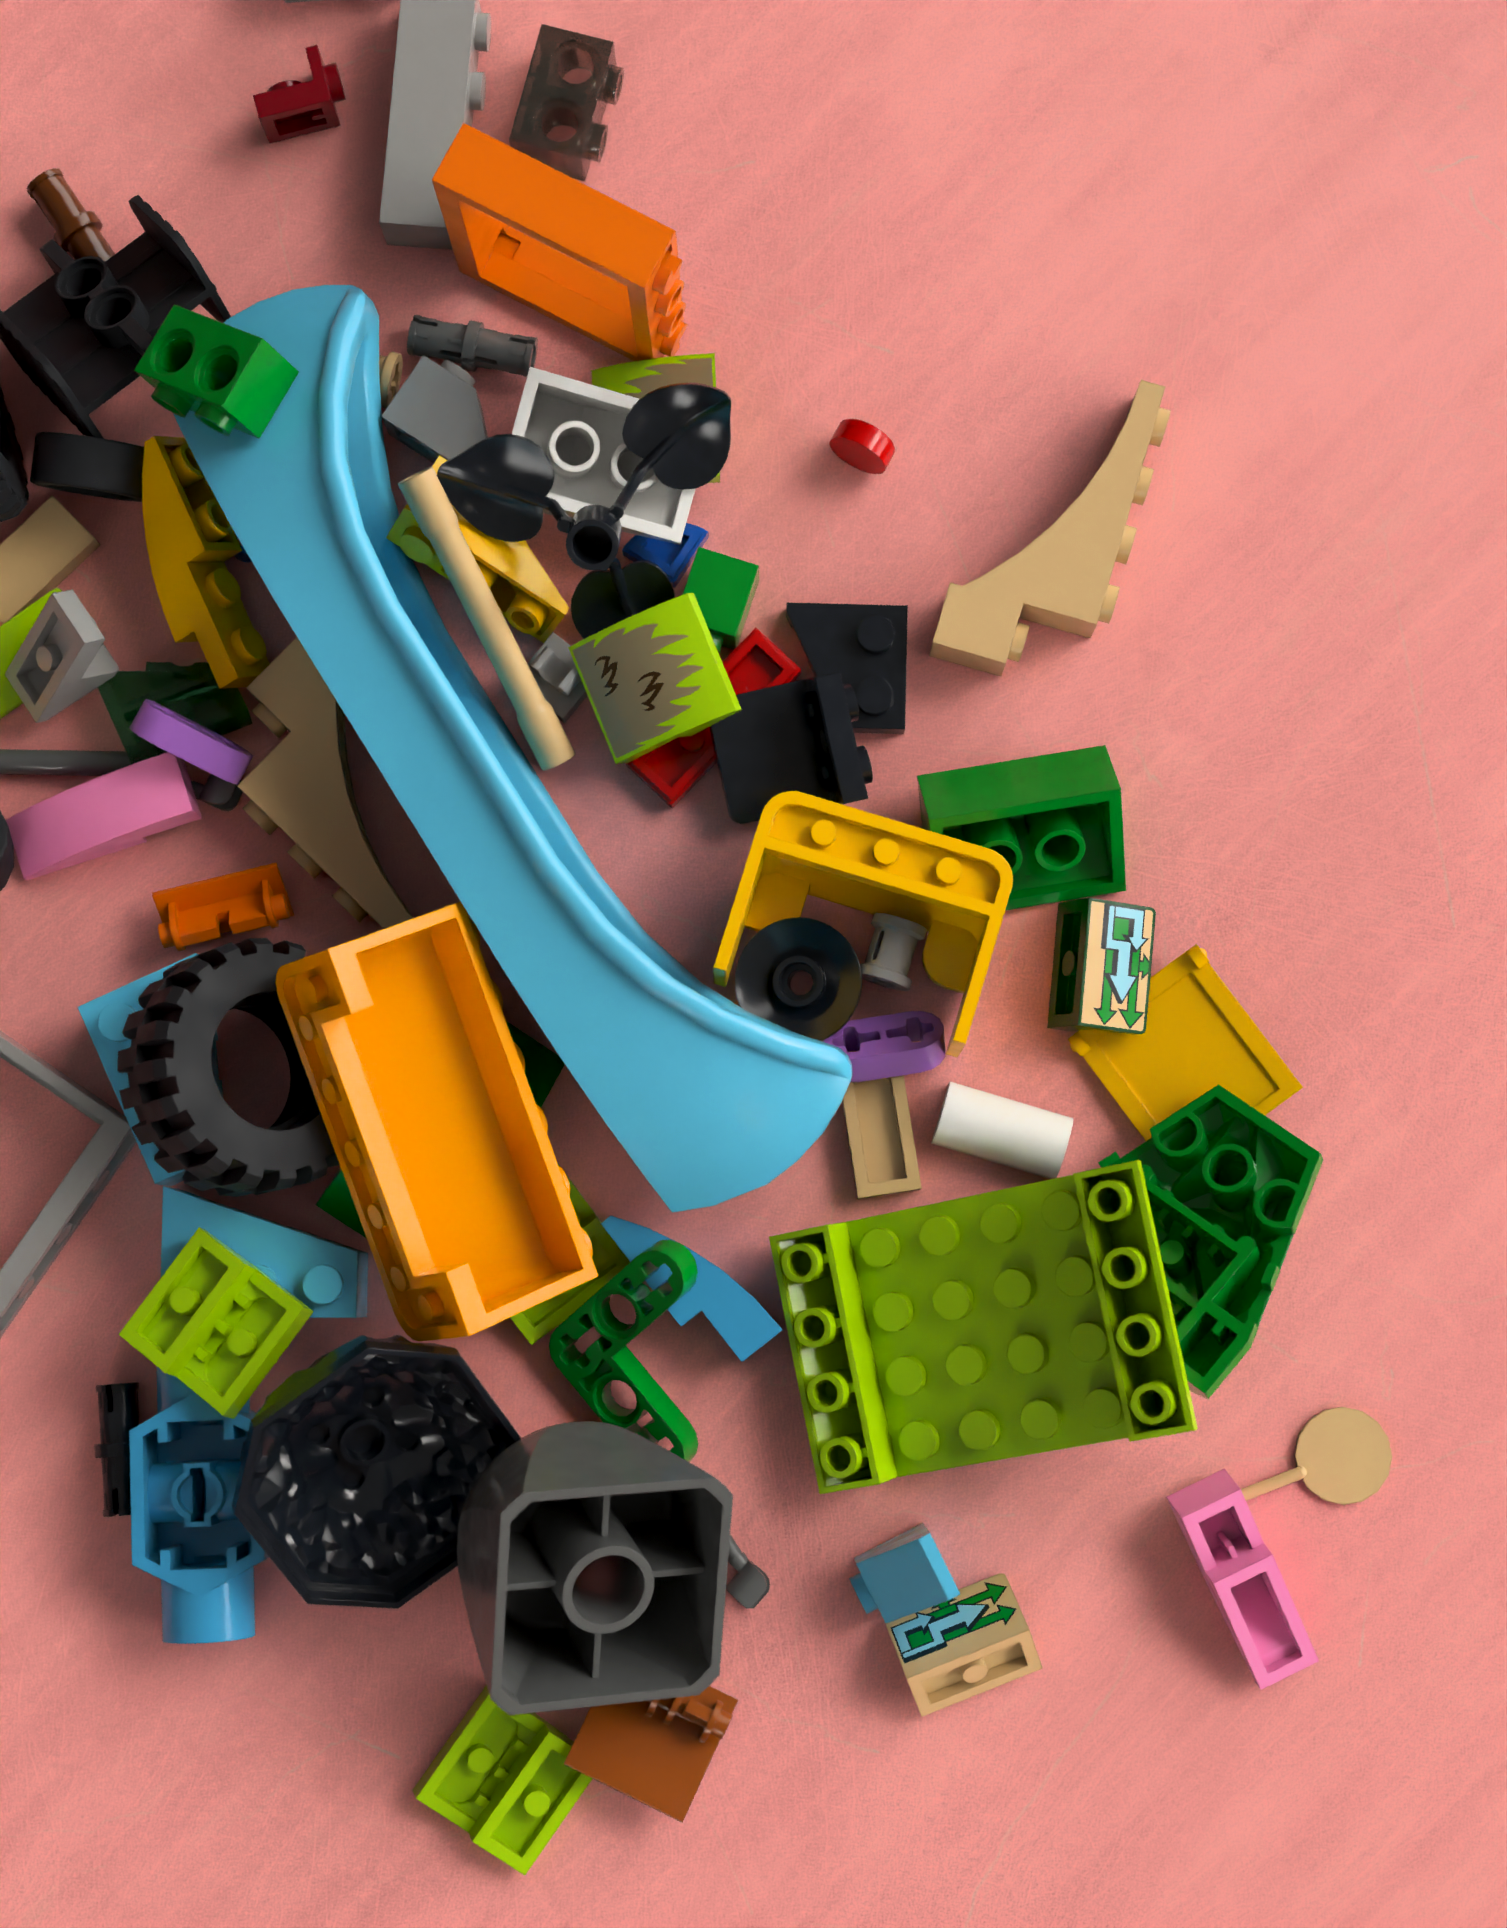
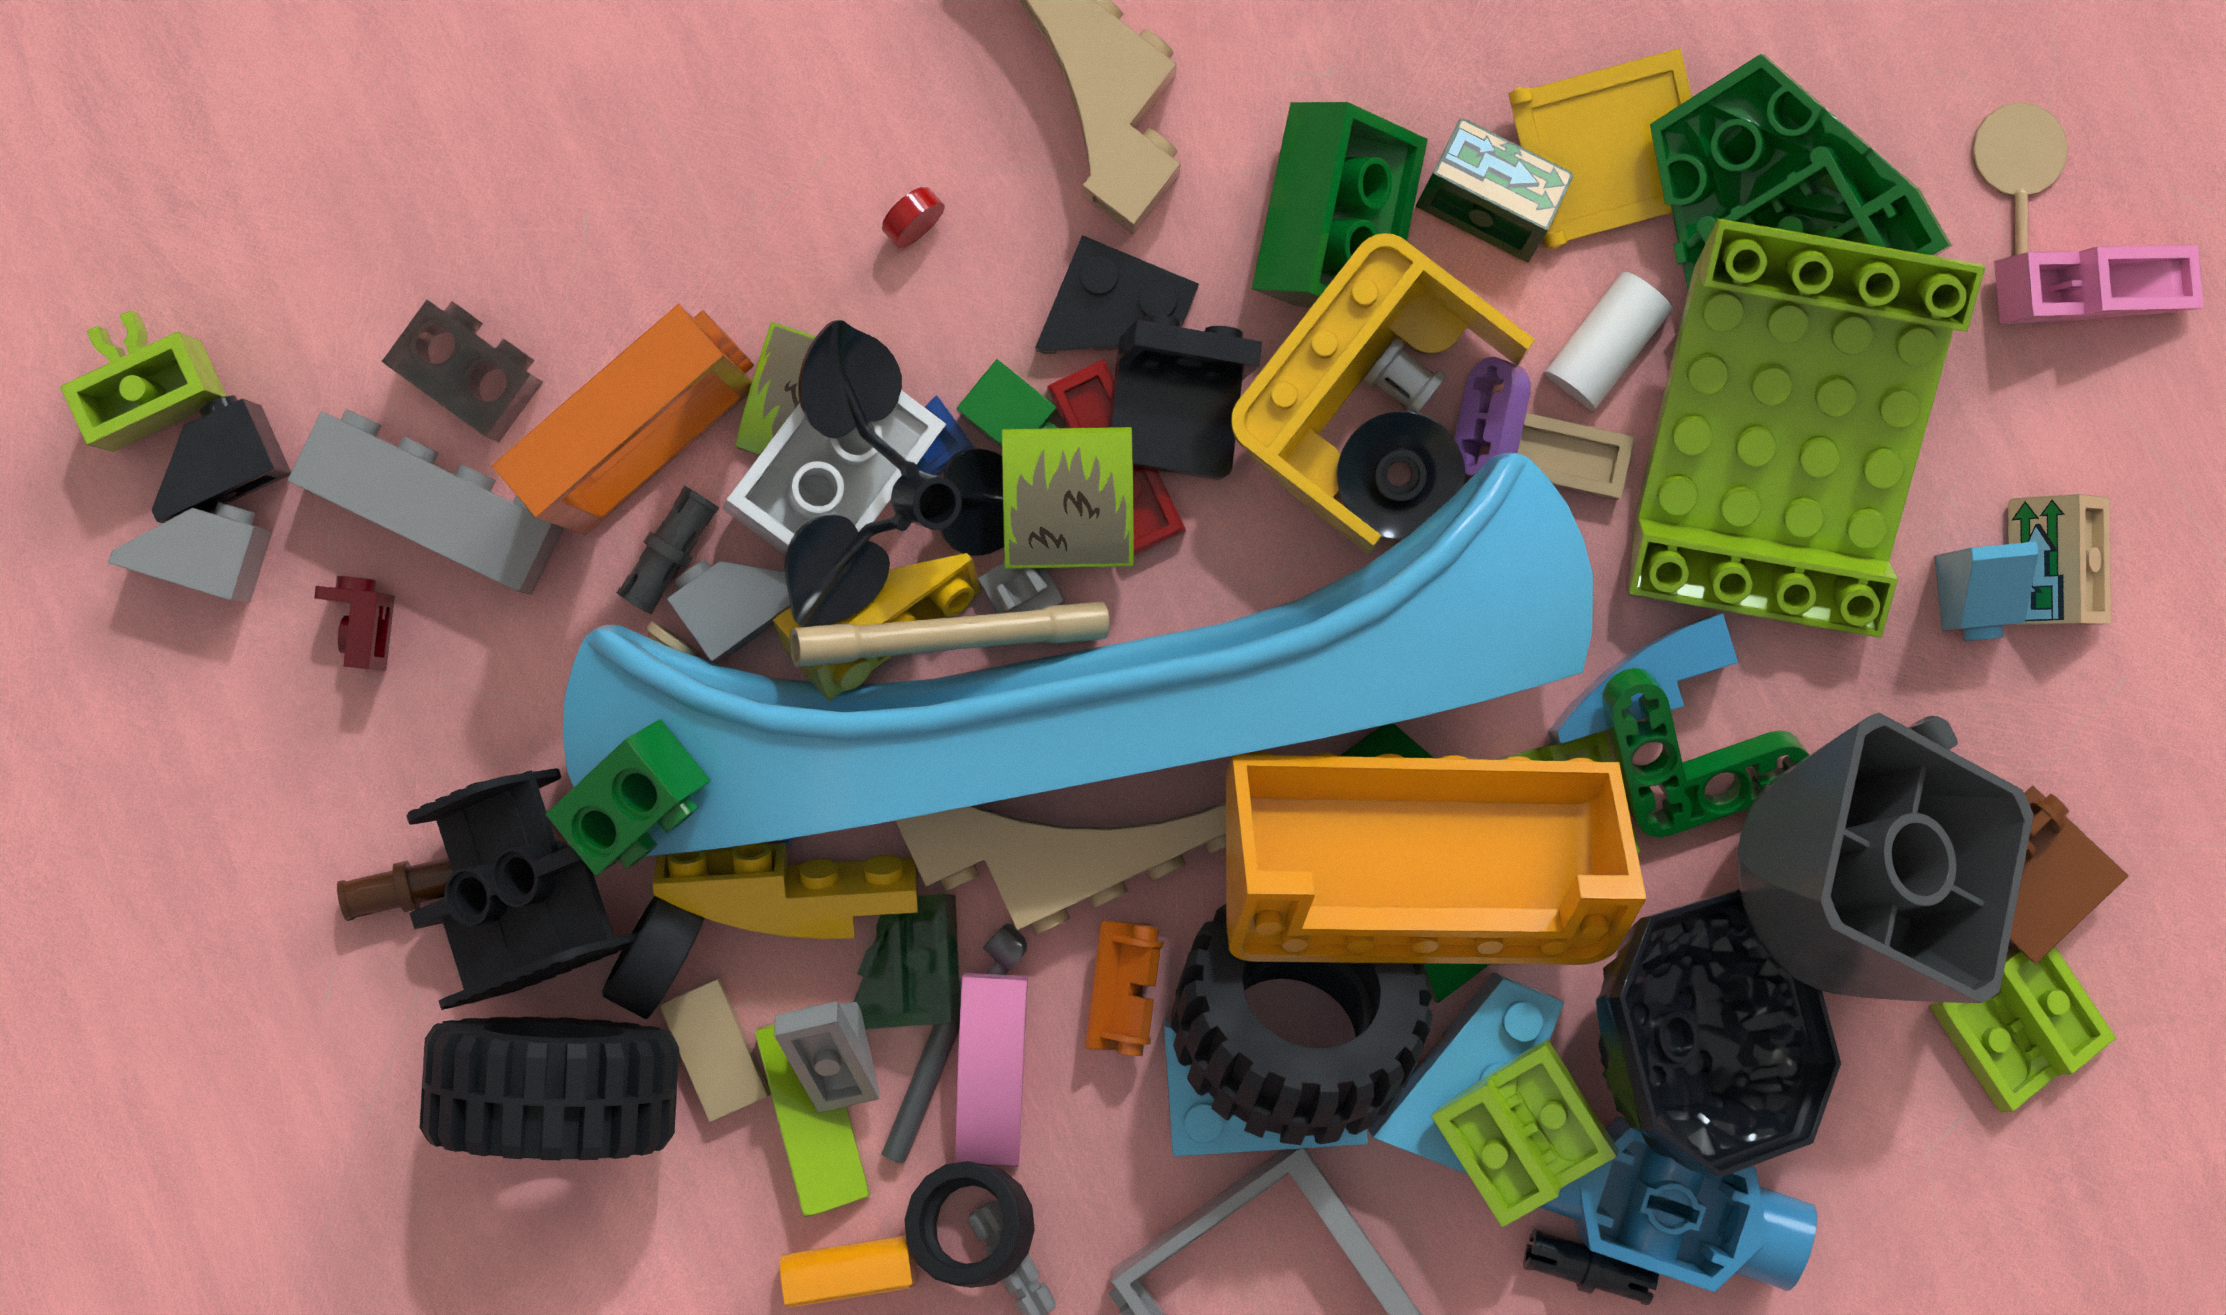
camera: 70 degrees left, 5 degrees up
(191, 741) = (962, 957): medium lavender beam -> none

